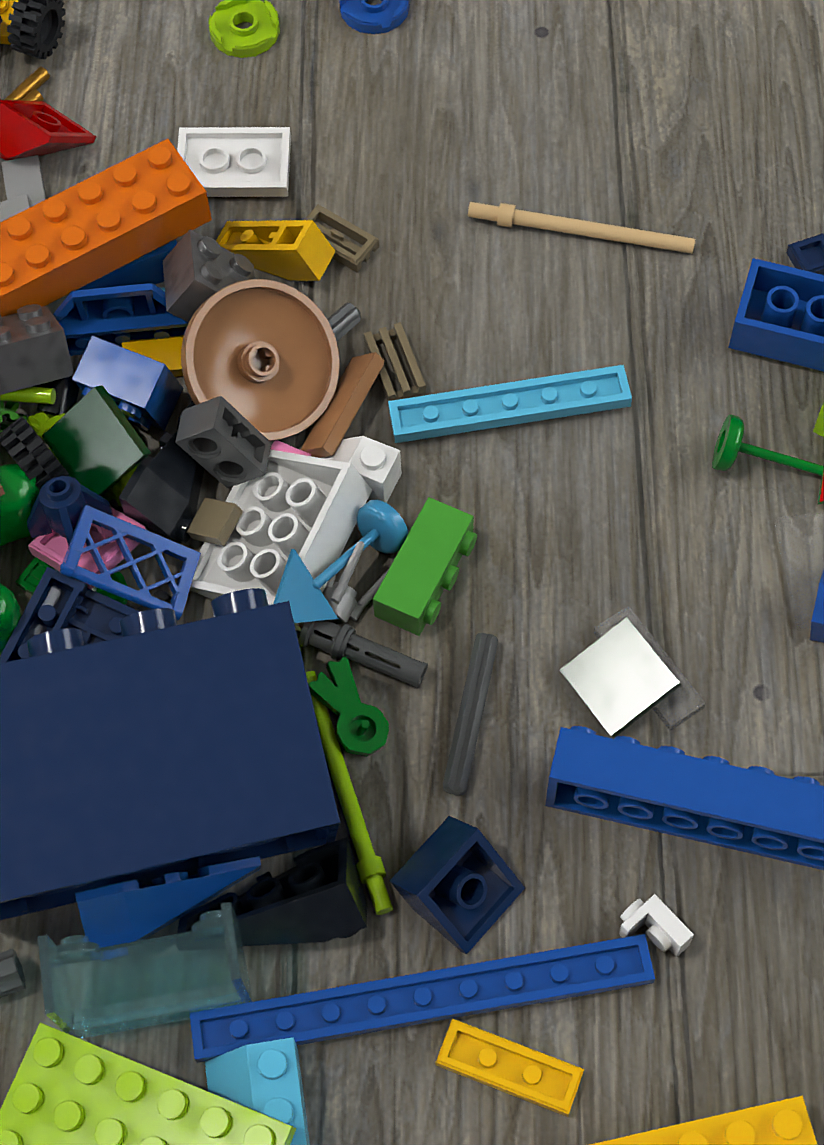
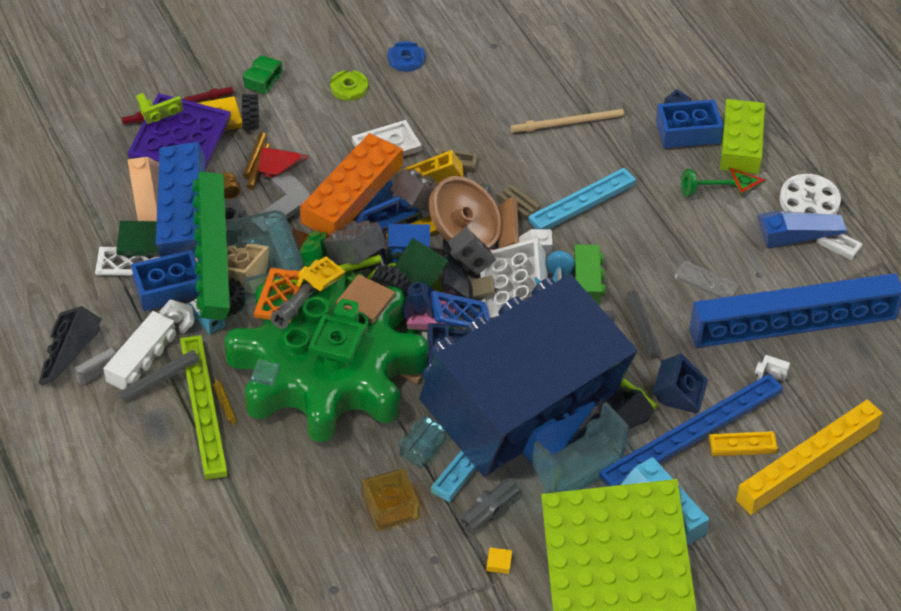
camera: 30 degrees left, 15 degrees down
(620, 677) = (698, 284): tile -> none

